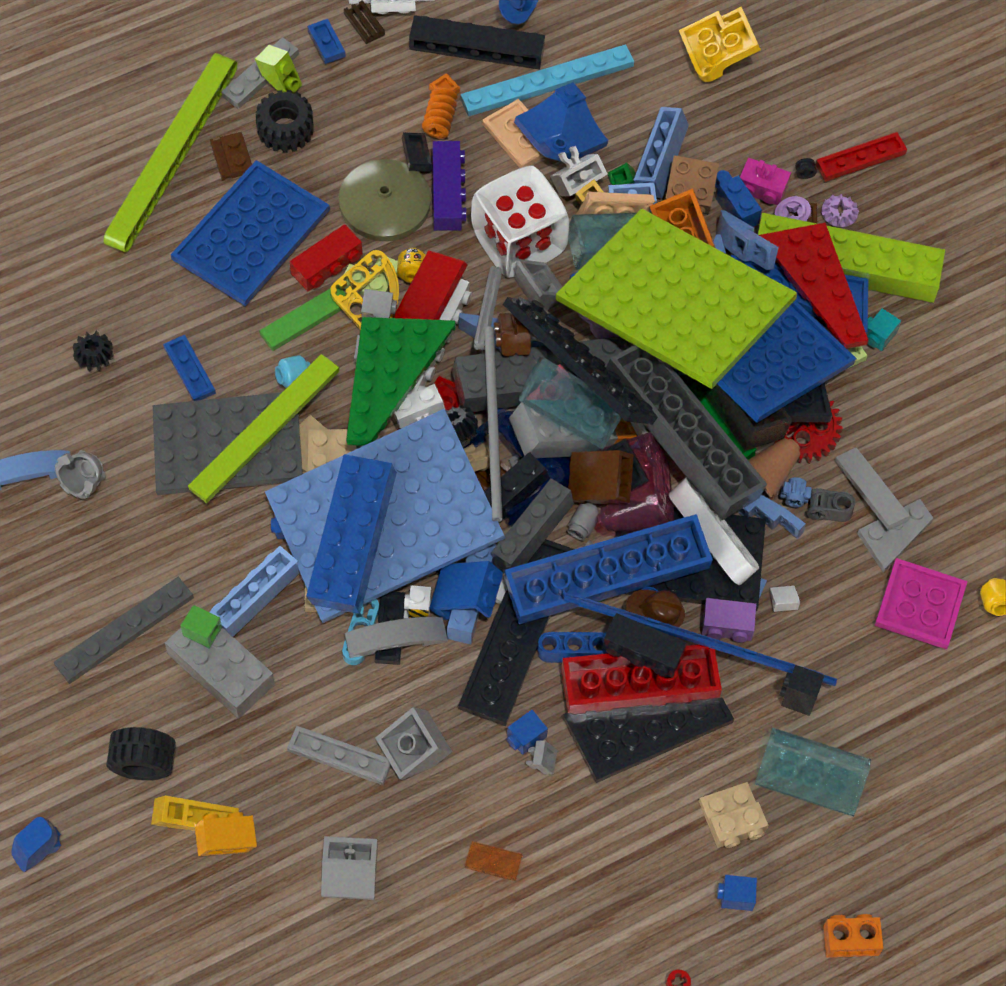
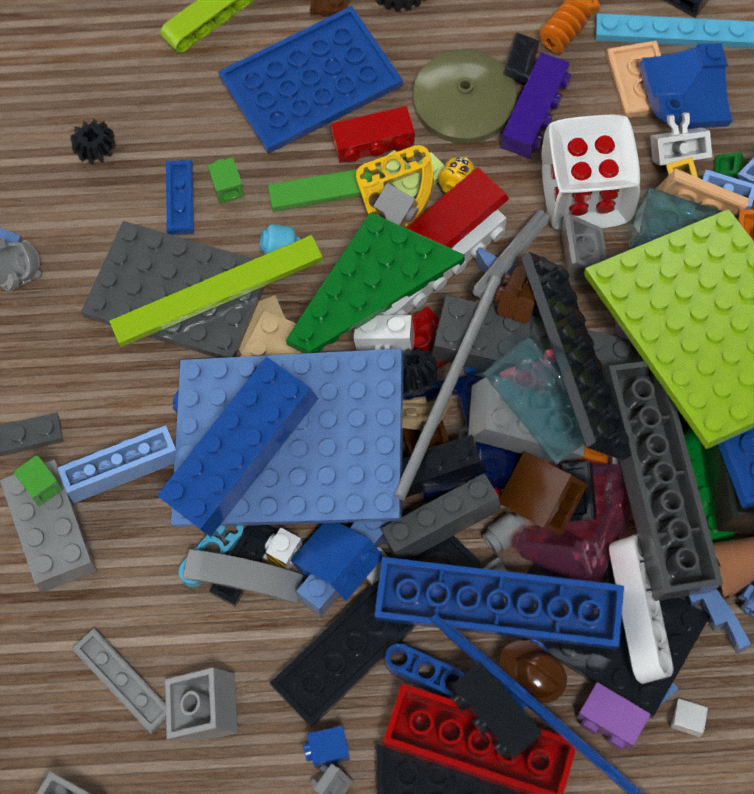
camera: 30 degrees right, 5 degrees up
(223, 339) = (226, 180): none -> bright green brick

